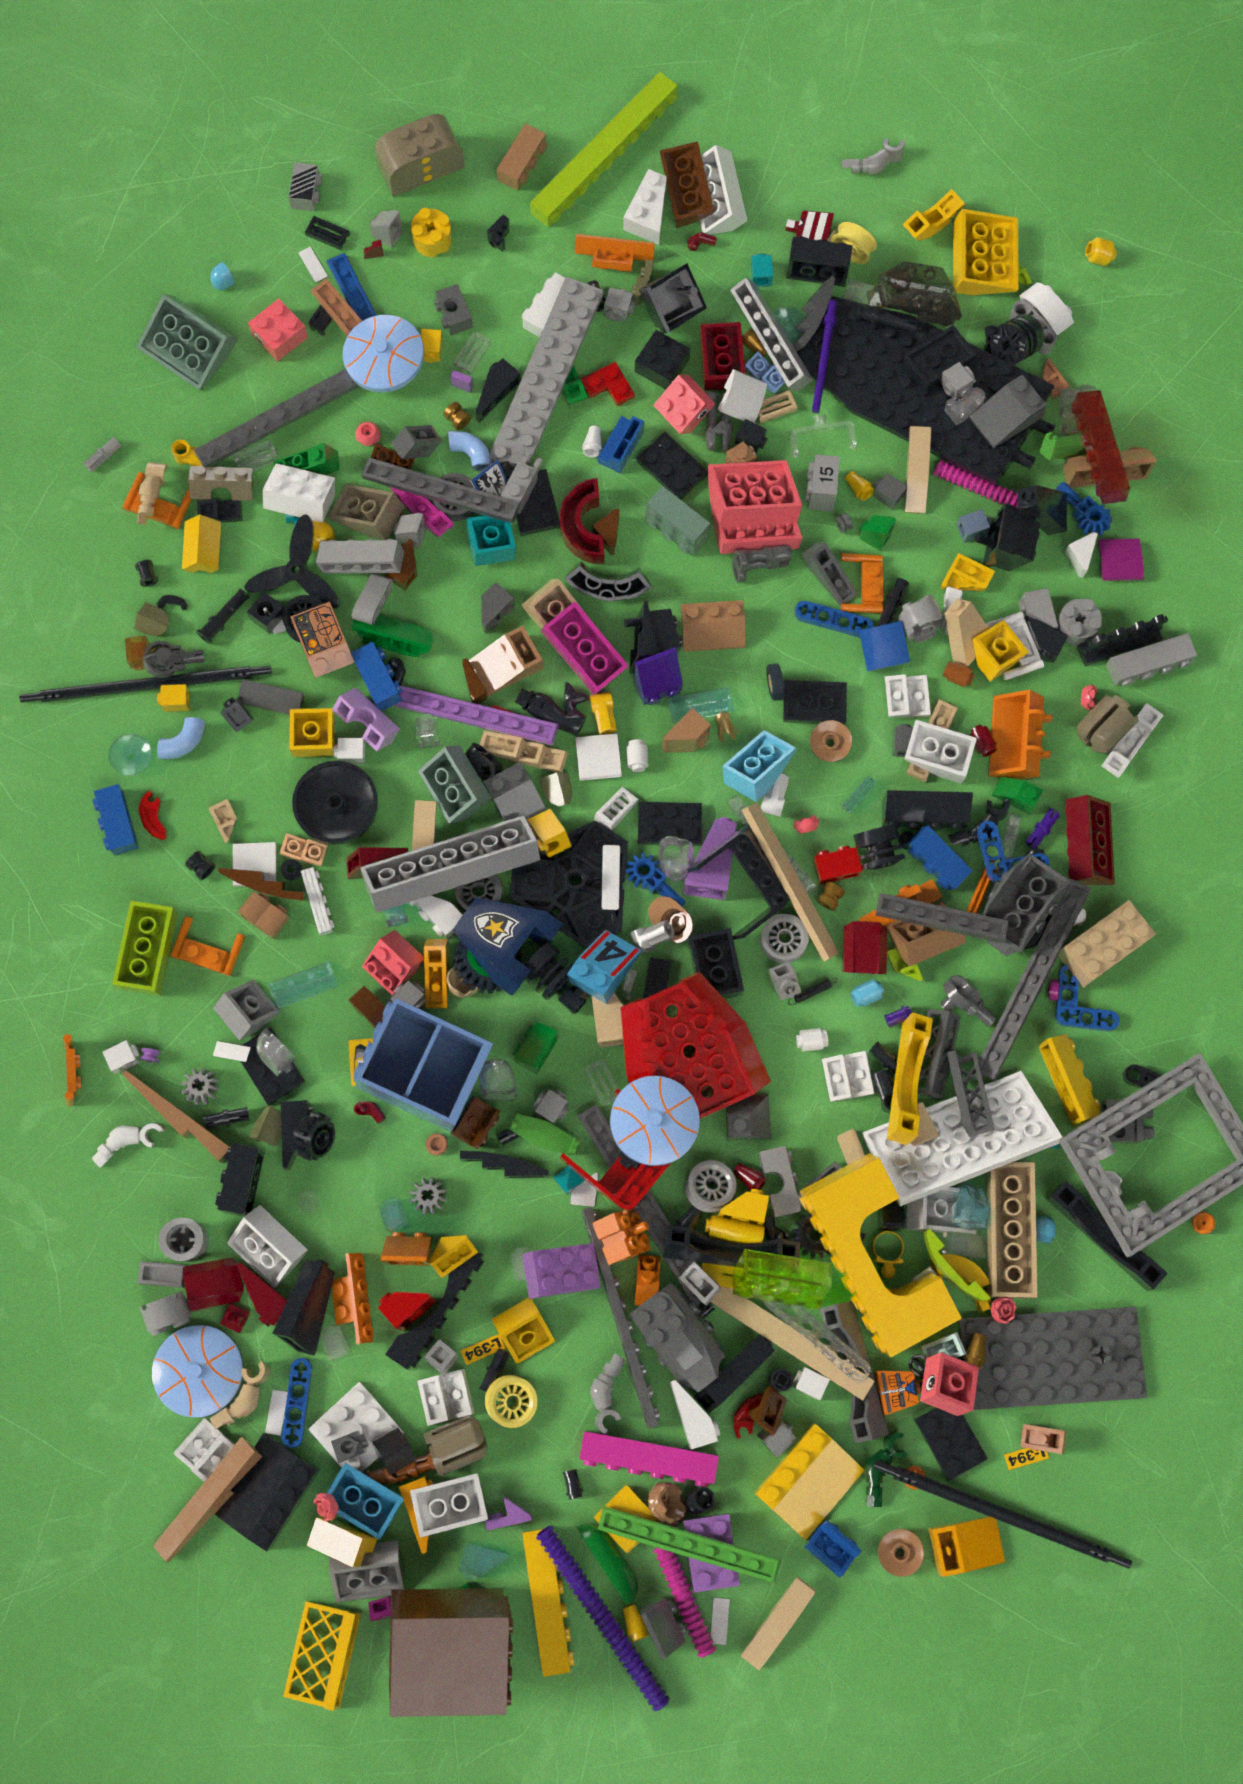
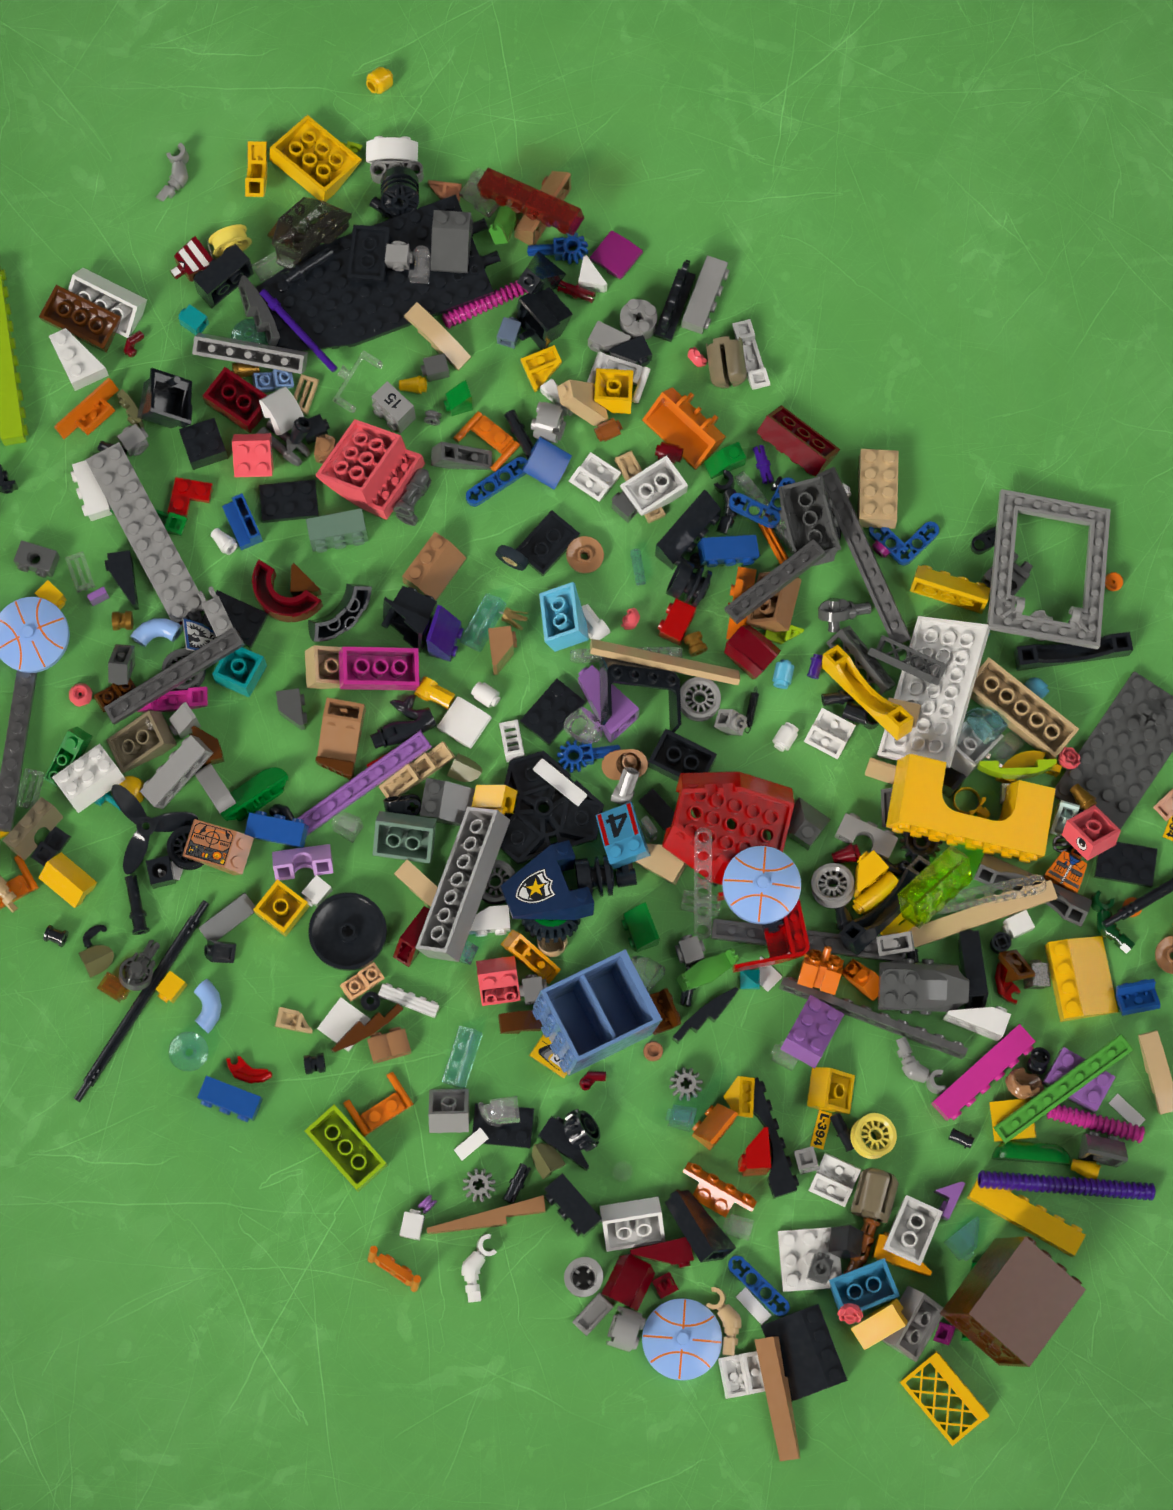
camera: 50 degrees left, 0 degrees up
(617, 1070) = (702, 883): none -> clear beam
(738, 422) = (300, 429): none -> black cone
(1059, 552) = (576, 291): none -> dark red pin

